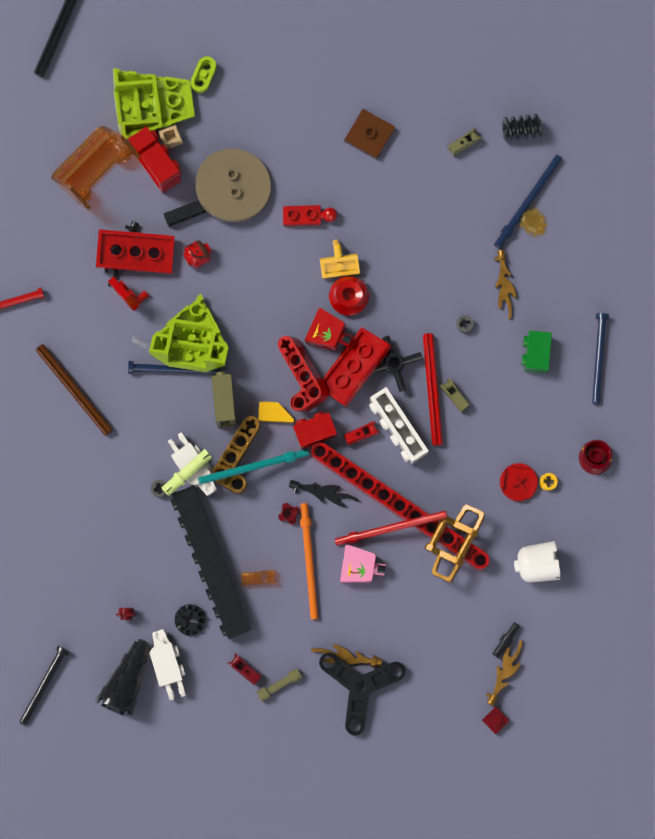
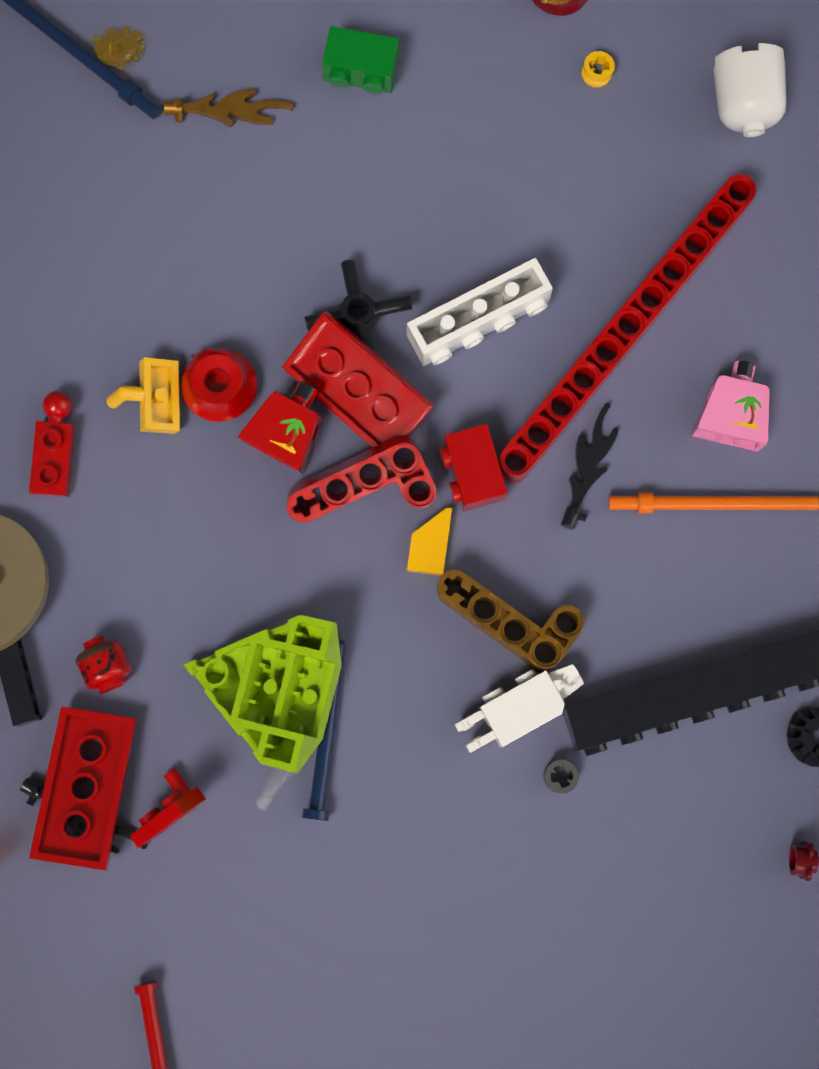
camera: 85 degrees left, 0 degrees up
(74, 390) = (349, 934): reddish brown axle -> none
(182, 476) = (542, 718): yellowish green pin -> none
(223, 400) = (401, 633): olive brick -> none
(254, 577) = (744, 605): clear orange bar -> none
(288, 457) = (520, 523): teal bar -> none
(293, 510) = (636, 530): dark red plate -> none
(355, 537) = (679, 414): red bar -> none
(358, 435) = (485, 390): red bar -> none
(432, 389) = (411, 250): red axle -> none
(457, 397) = (431, 210): olive bar -> none
(458, 560) = (695, 198): pearl gold bar -> none
(467, 319) = (285, 179): dark grey bush -> none
(518, 482) = (595, 119): red tile -> none

